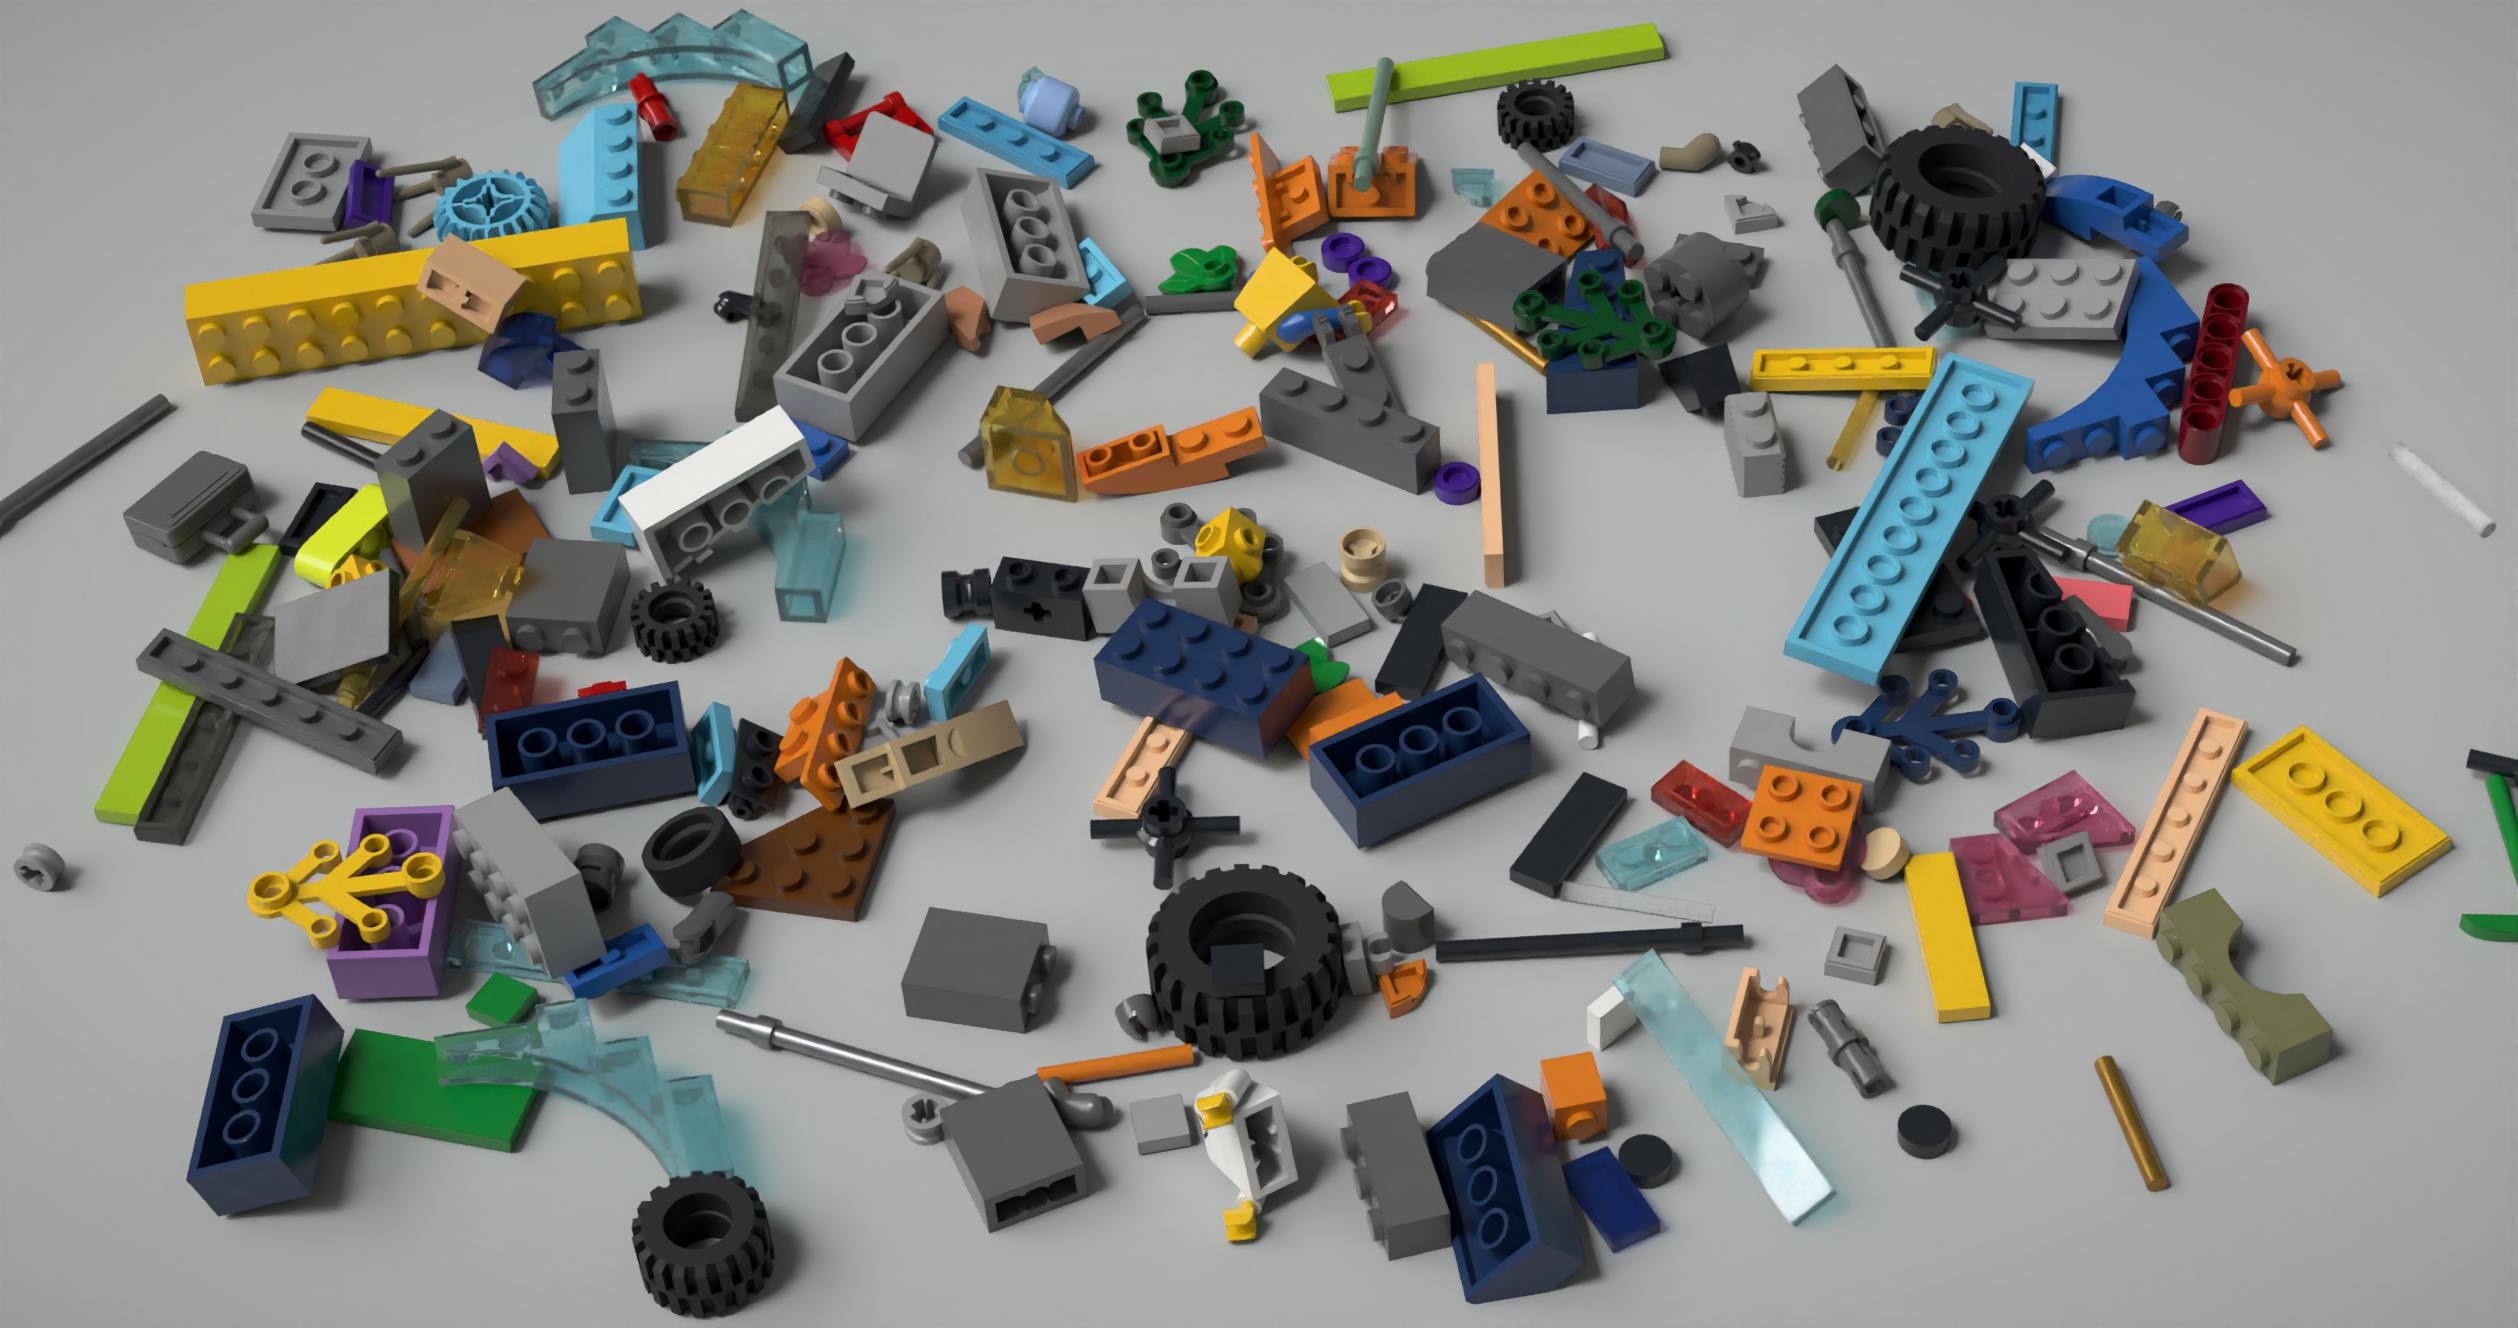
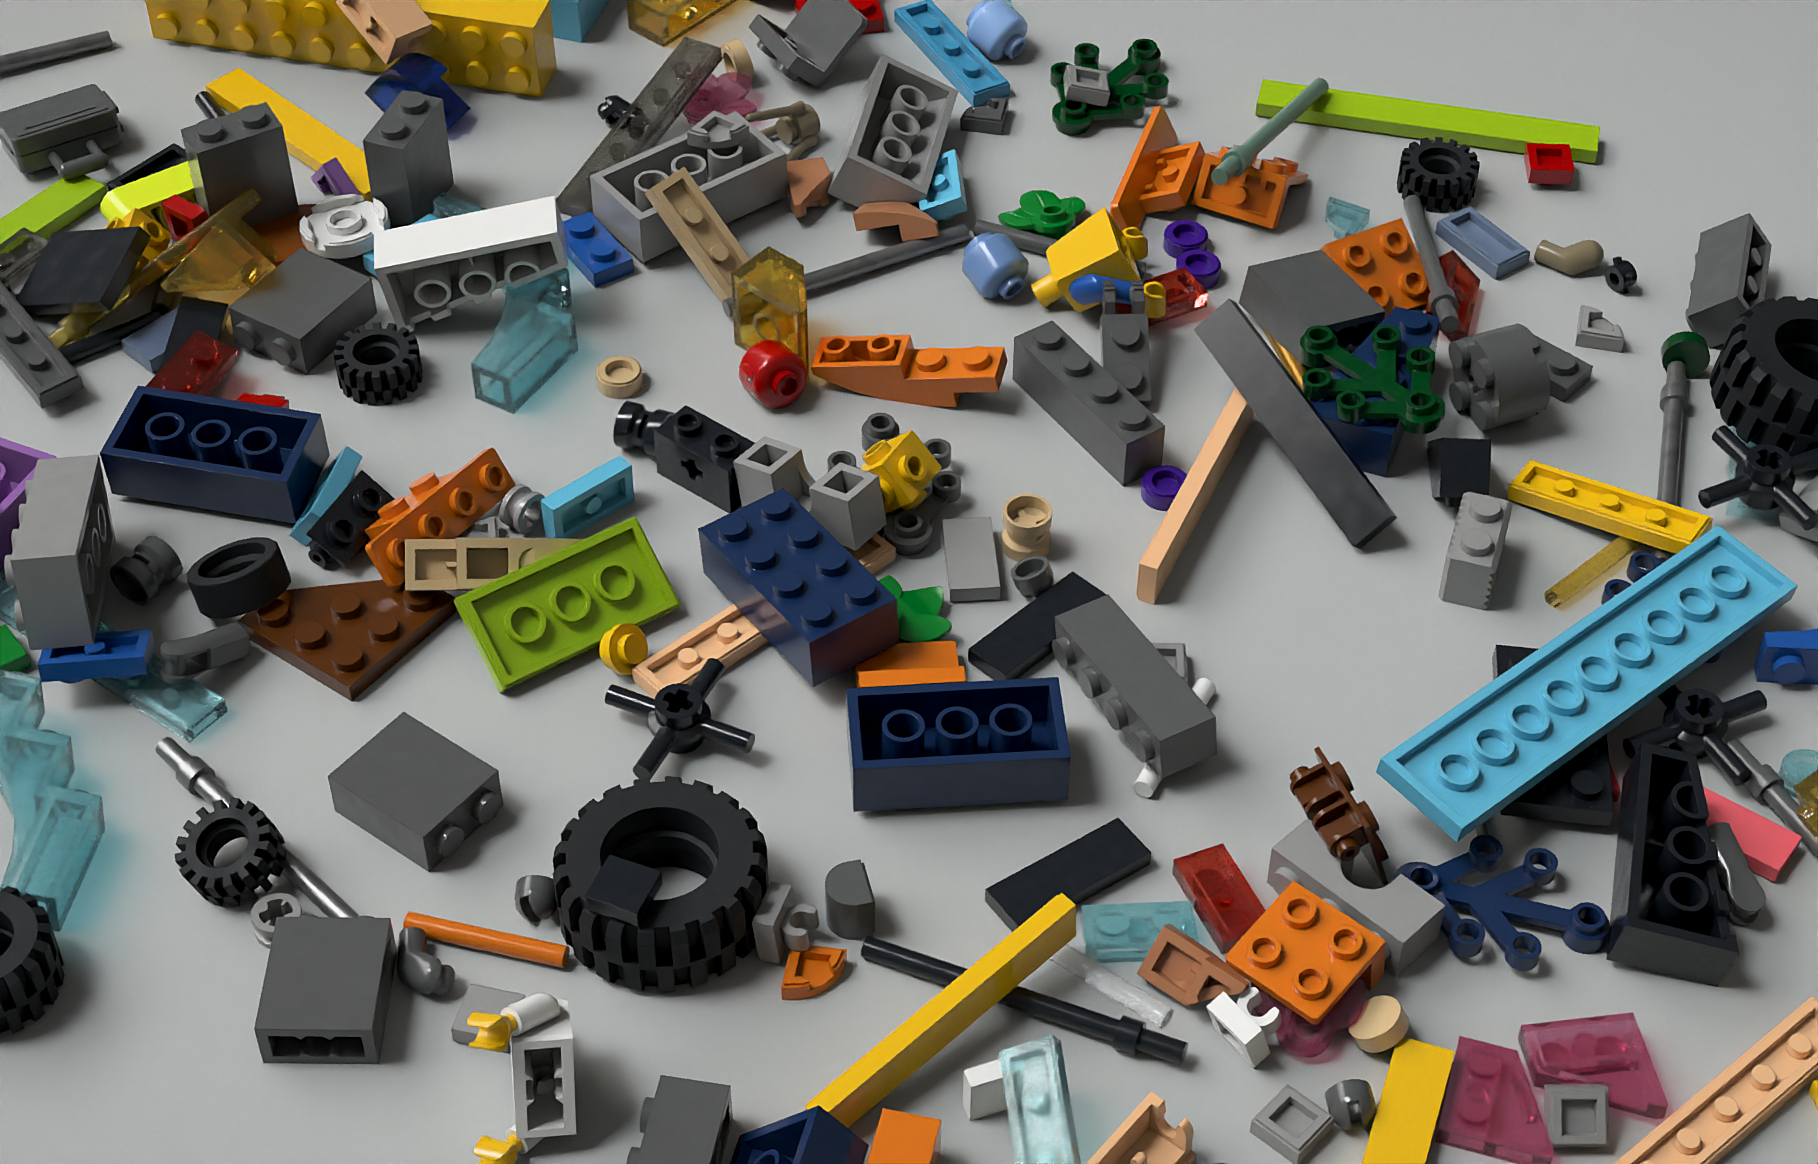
camera: 20 degrees right, 0 degrees up
(399, 549) = (182, 216): none -> red plate
(555, 504) = (343, 226): none -> white tile
(838, 1054) = (212, 834): none -> black tyre
(905, 555) = (619, 377): none -> tan tile
(914, 396) = (698, 230): none -> tan plate
(1005, 767) = (566, 603): none -> lime tile
(1051, 502) = (770, 370): none -> red head
(1077, 787) = (623, 648): none -> yellow plate
(1089, 196) = (986, 118): none -> dark grey tile
(1191, 335) = (995, 266): none -> medium blue head
(1548, 386) = (1295, 424): none -> black tile
(1548, 965) = (949, 1013): none -> yellow tile
(1627, 72) = (1549, 163): none -> red plate
(1713, 868) = (1188, 969): none -> nougat slope
(1773, 700) = (1336, 815): none -> reddish brown hinge
(1778, 897) = (1242, 1029): none -> white tile
(1894, 921) = (1351, 1103): none -> dark grey hinge

